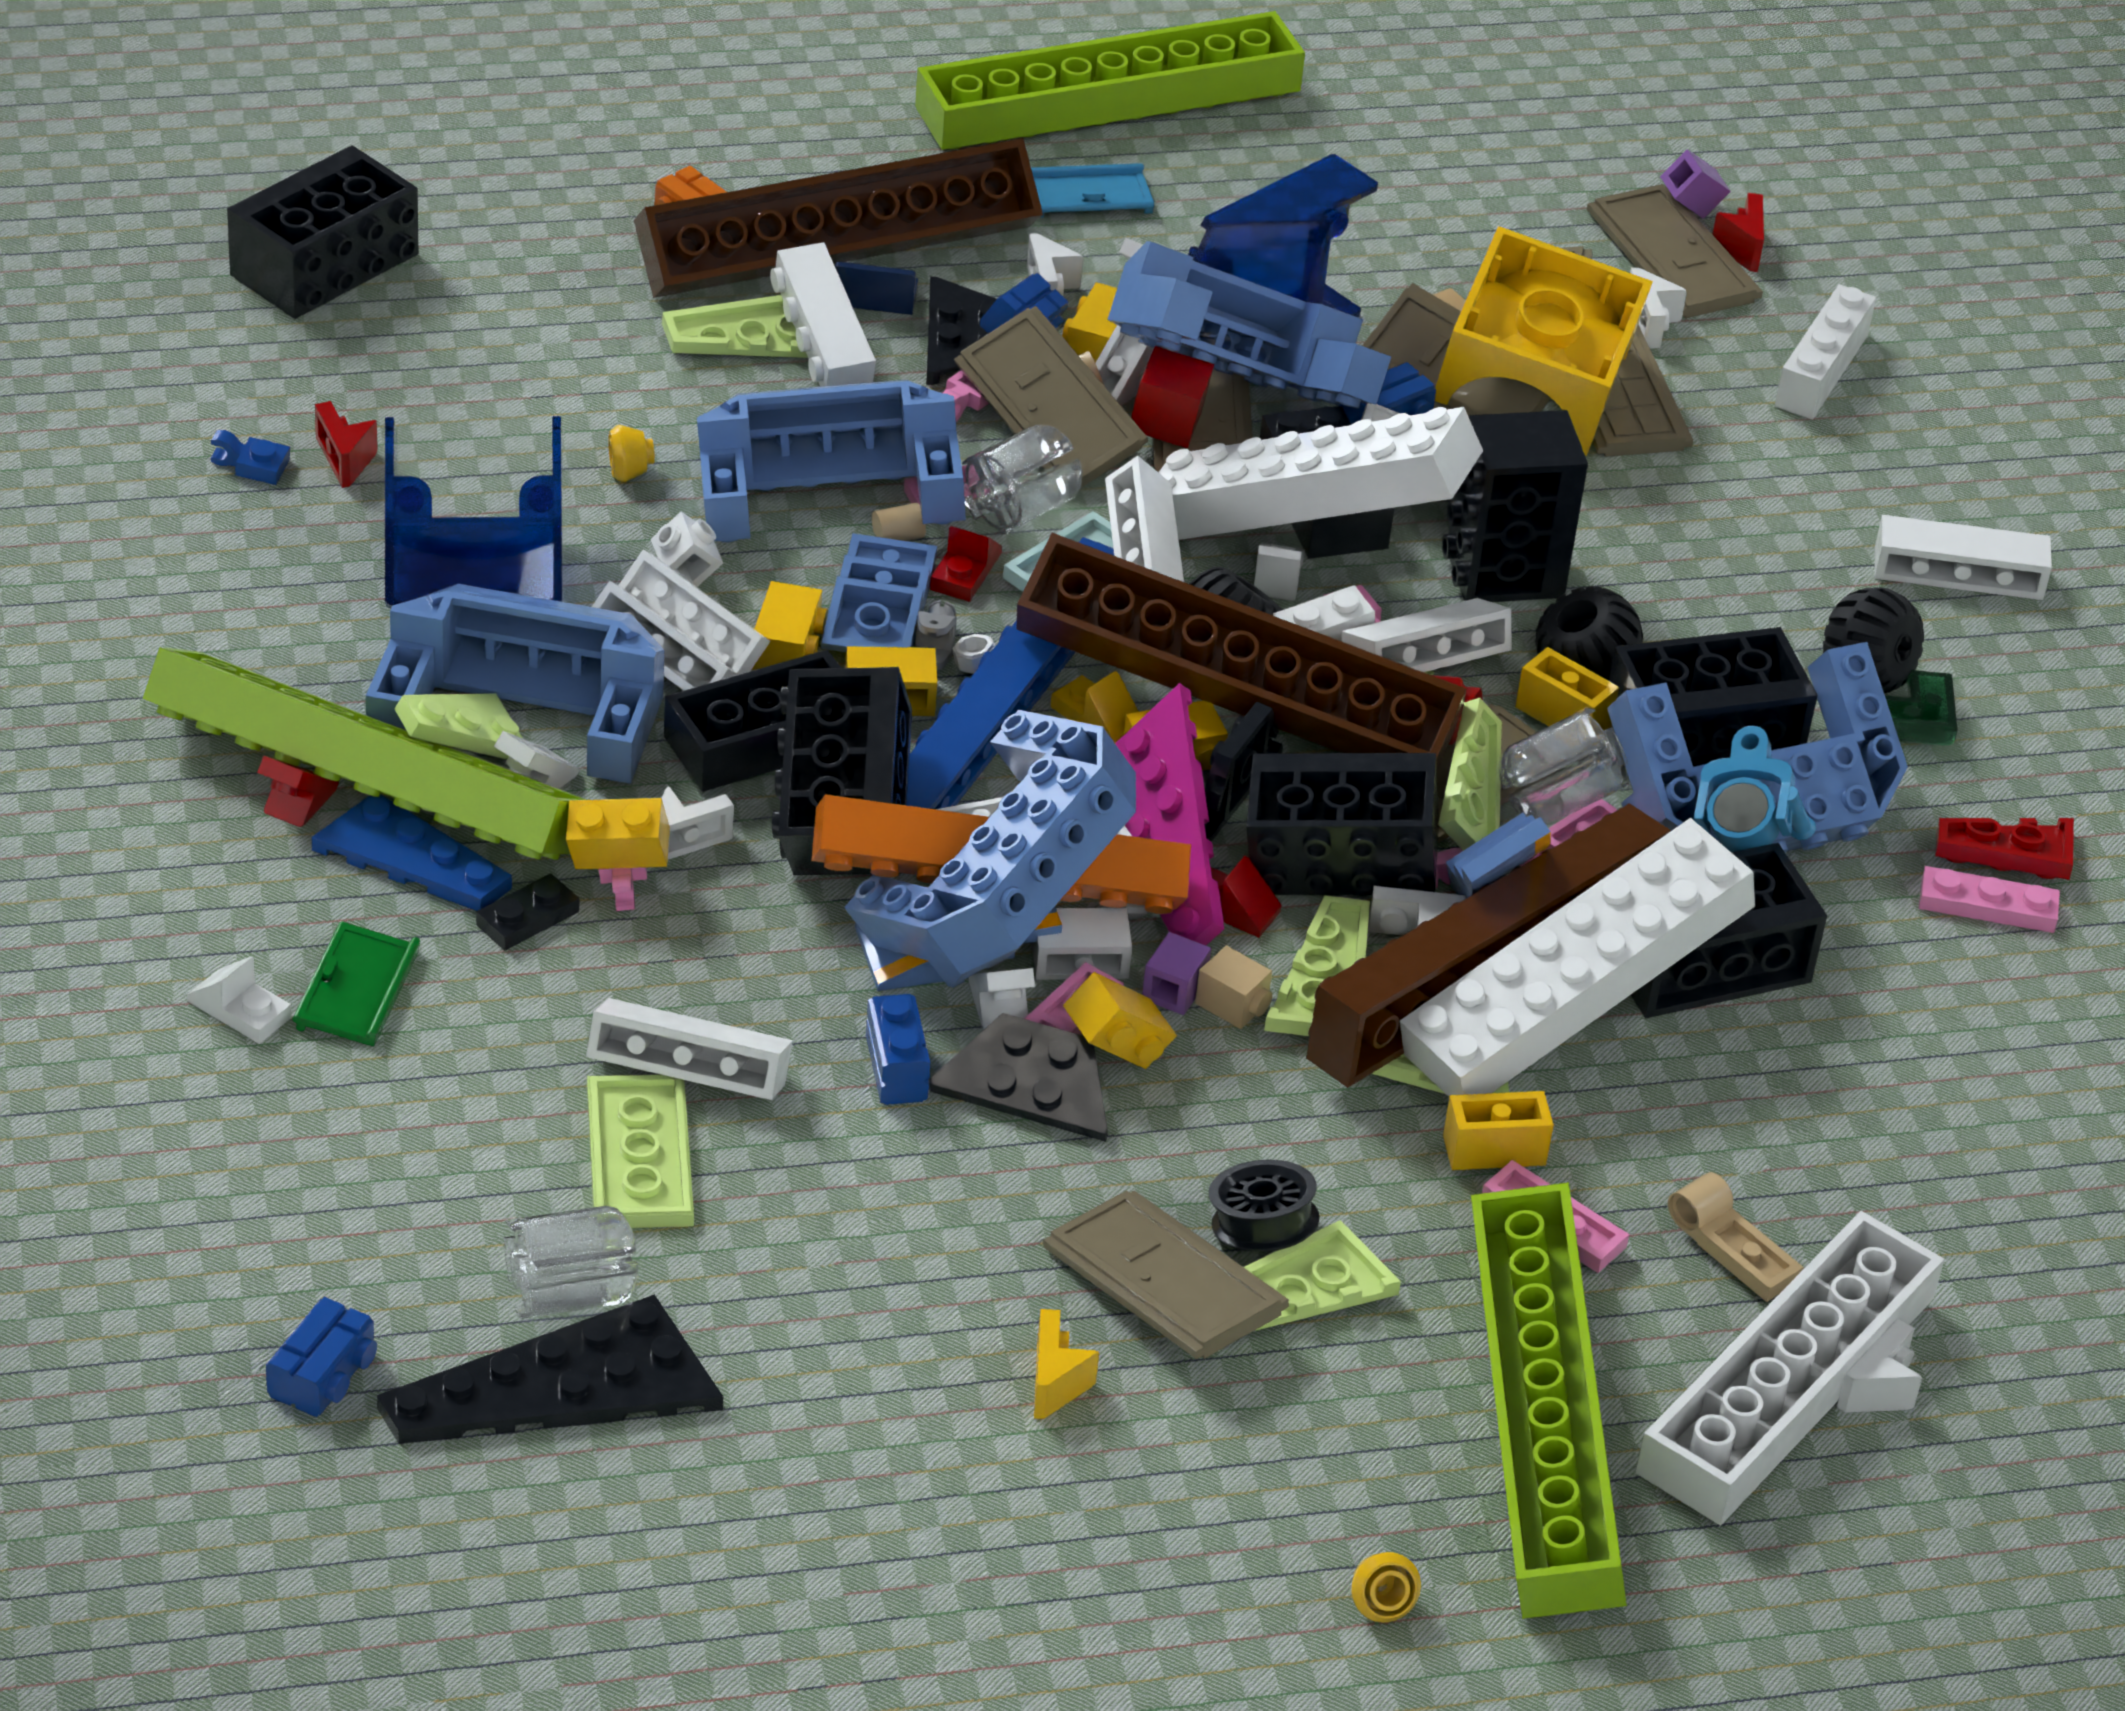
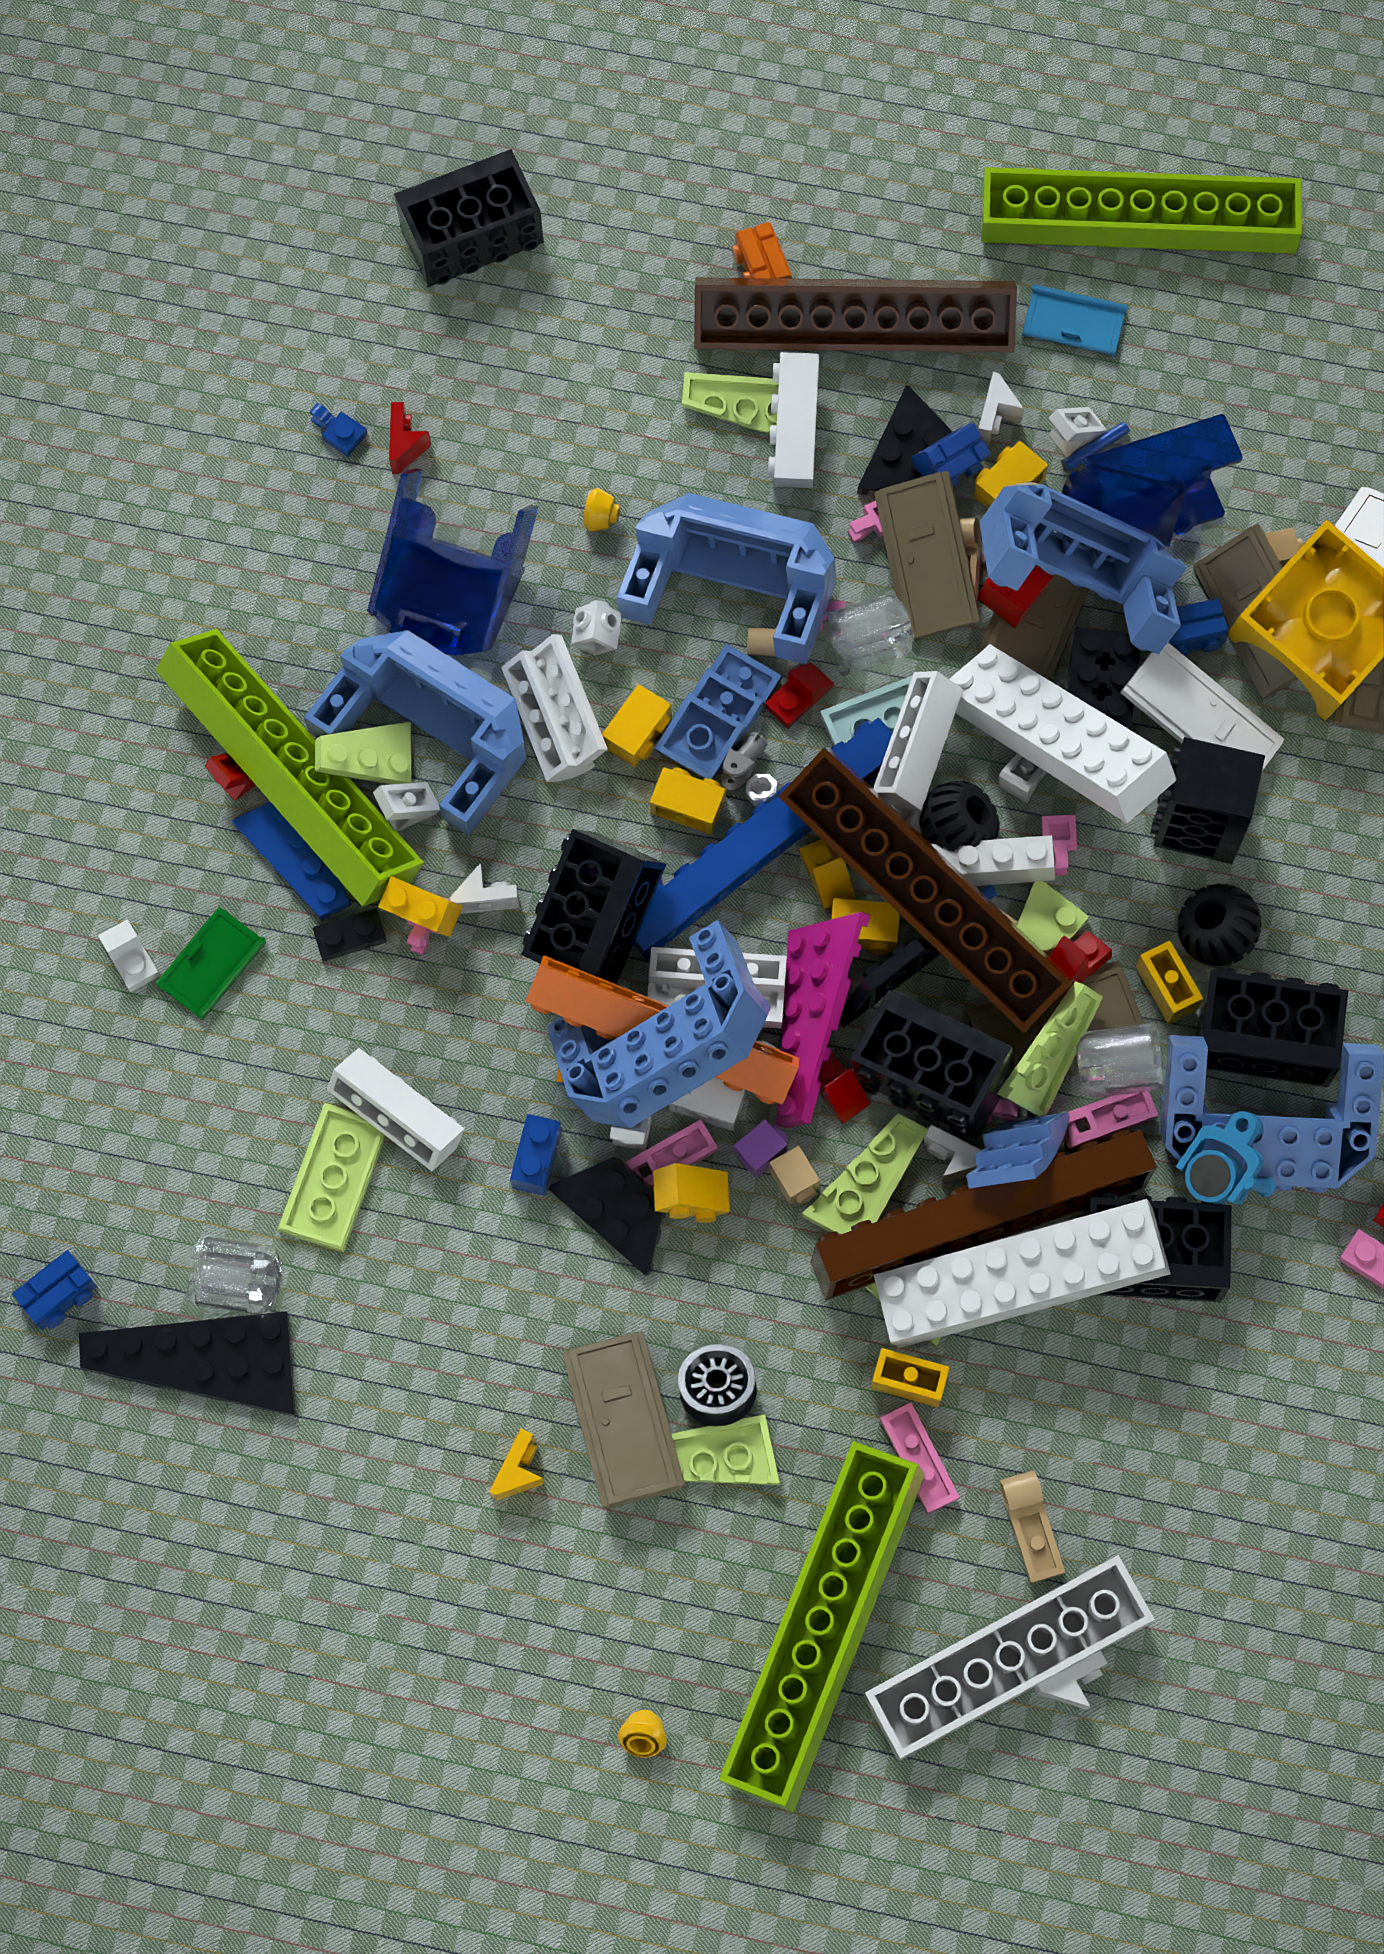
camera: 30 degrees right, 30 degrees up
(732, 725) = (567, 798): black brick -> none
(879, 287) = (859, 385): dark blue panel -> none
(1438, 635) = (1089, 895): white brick -> none

